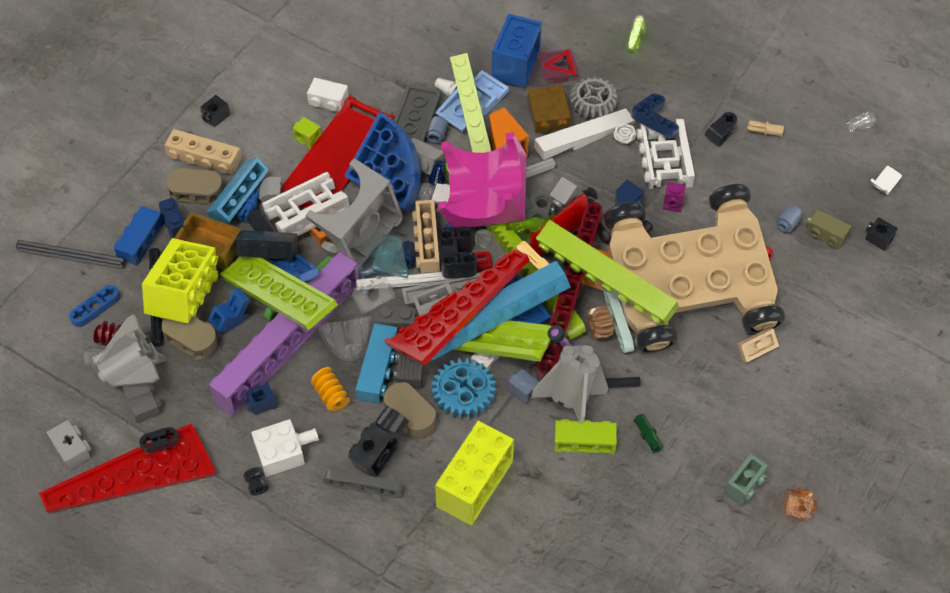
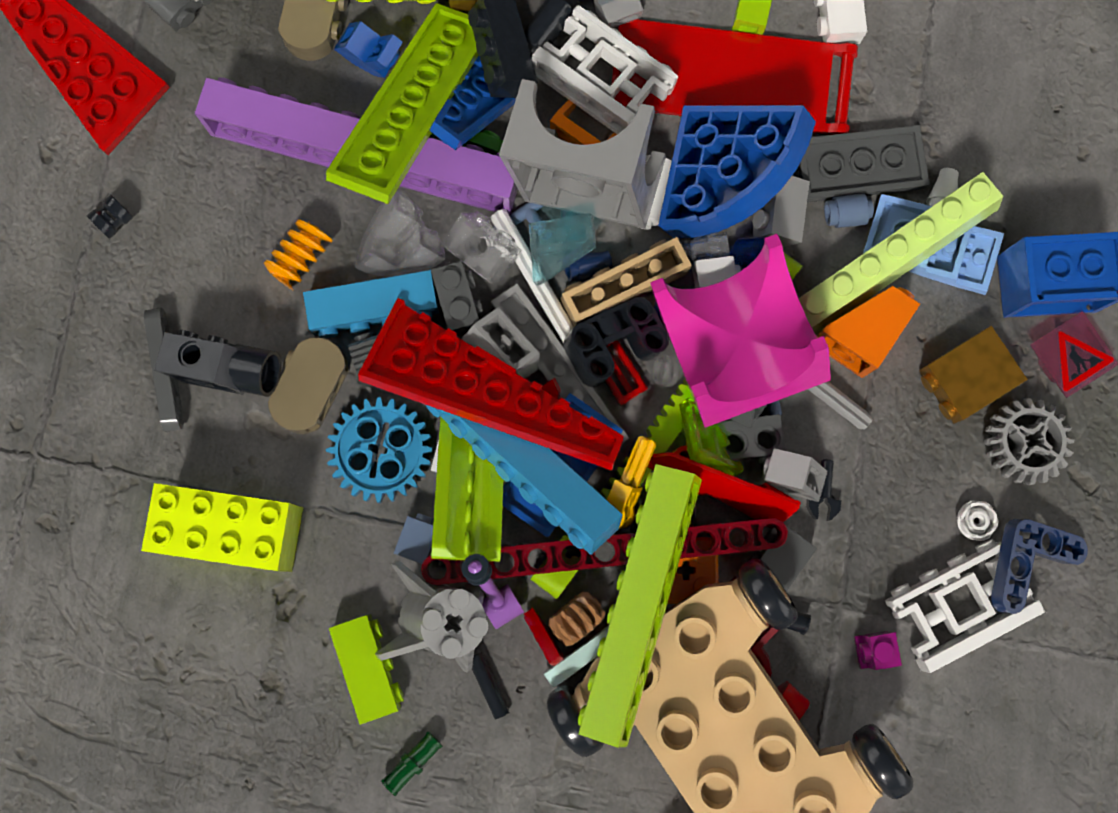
camera: 60 degrees right, 25 degrees up
(159, 440) = (120, 47): black beam -> none
(260, 399) = (238, 150): dark blue brick -> none
(281, 447) = (174, 226): white brick -> none
(581, 134) = (946, 451): white slope -> none
(607, 342) = (544, 637): none -> red tile
(629, 193) = (839, 572): dark blue slope -> none
(722, 128) = (1057, 683): black piece -> none
(765, 128) = (1097, 758): tan axle -> none

